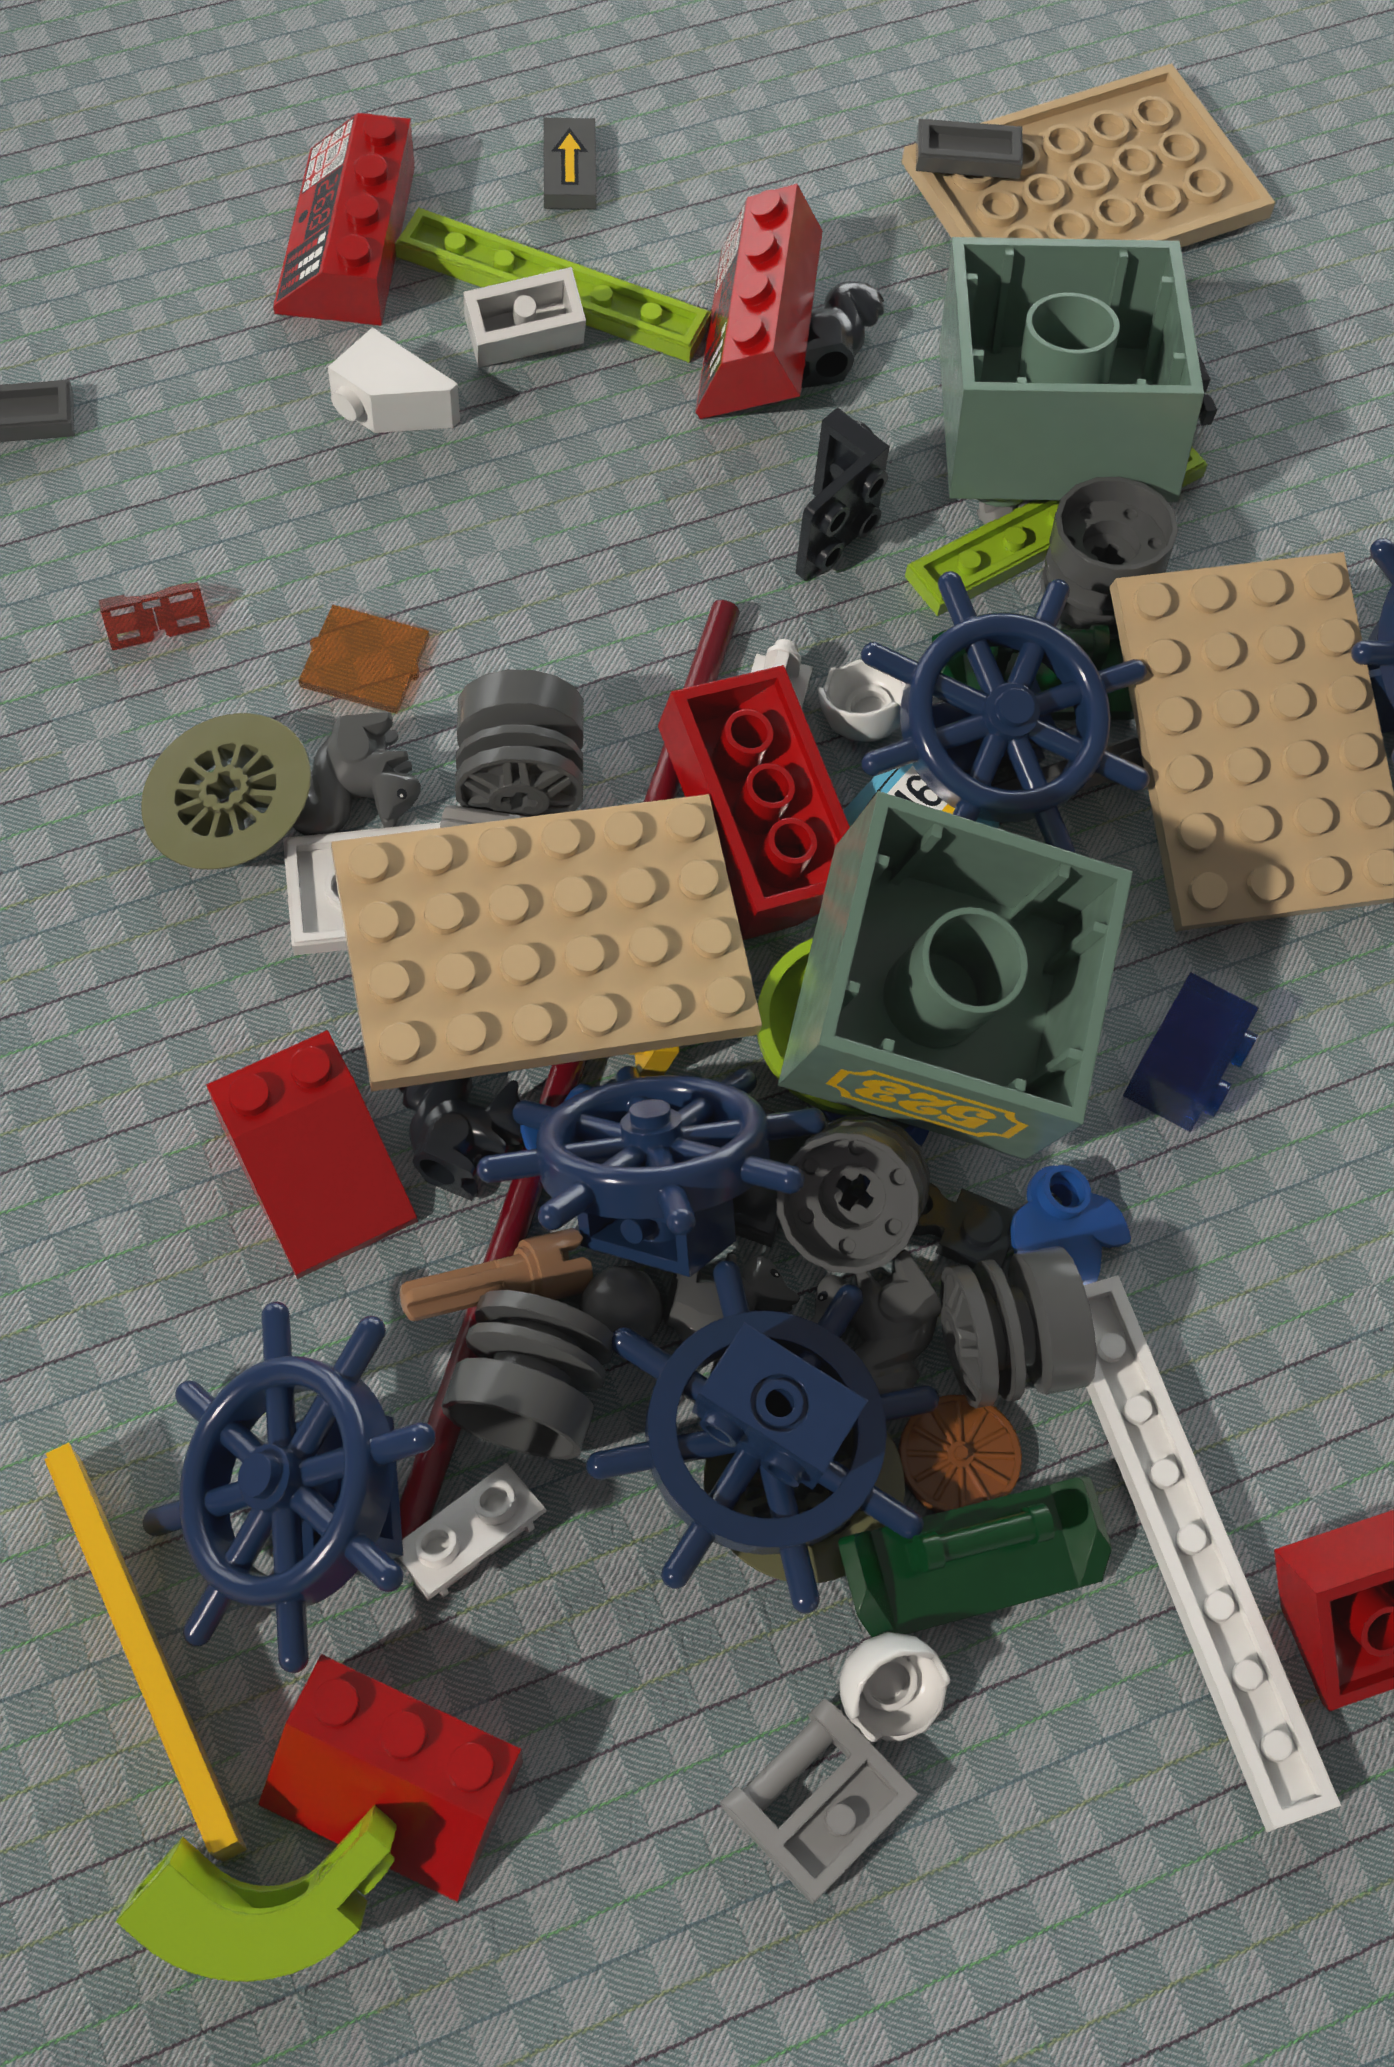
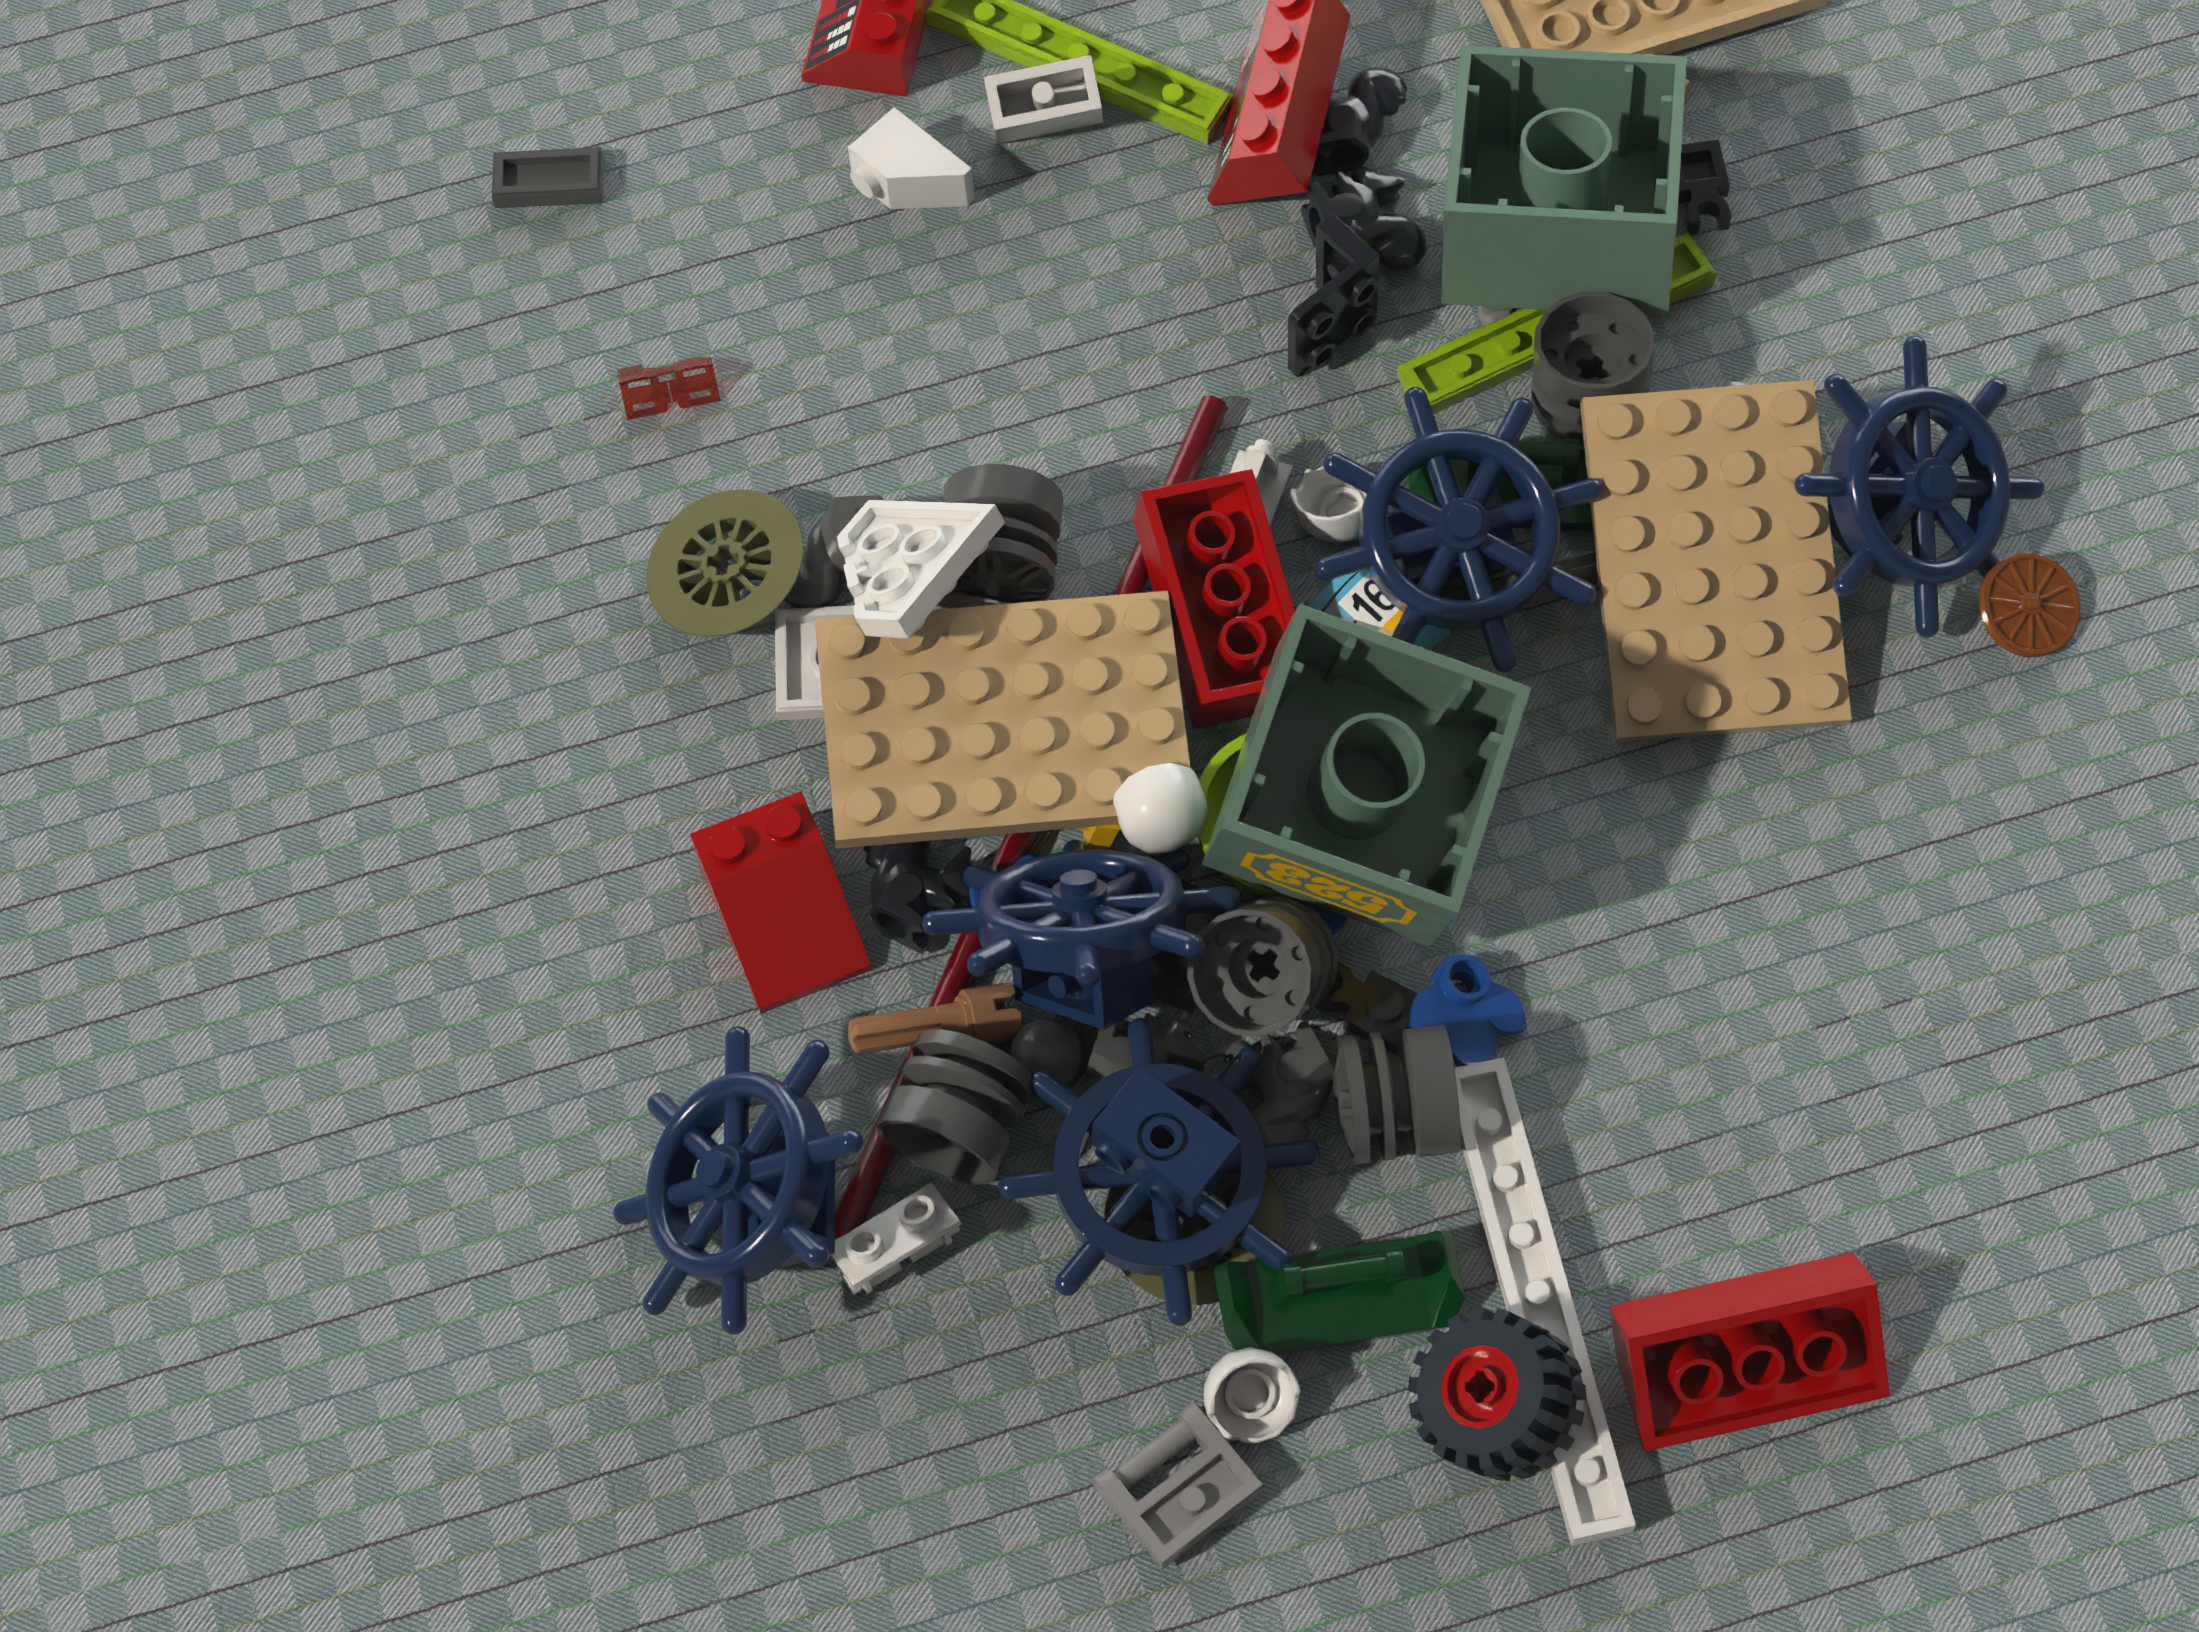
camera: 15 degrees right, 0 degrees up
(145, 1655) = (609, 1316): yellow tile -> none
(255, 1932) = (676, 1543): lime arch -> none
(364, 659) = (863, 438): clear orange piece -> none
(373, 1745) = (810, 1433): red slope -> none
(431, 771) = (910, 557): none -> white plate
(727, 1026) = (1161, 808): none -> white hair
(859, 399) = (1358, 203): none -> black animal
(959, 1455) = (1339, 1204): dark orange wheel -> none
(1173, 1668) = (1496, 1394): none -> black wheel
(1191, 1052) = (1606, 858): clear blue brick -> none

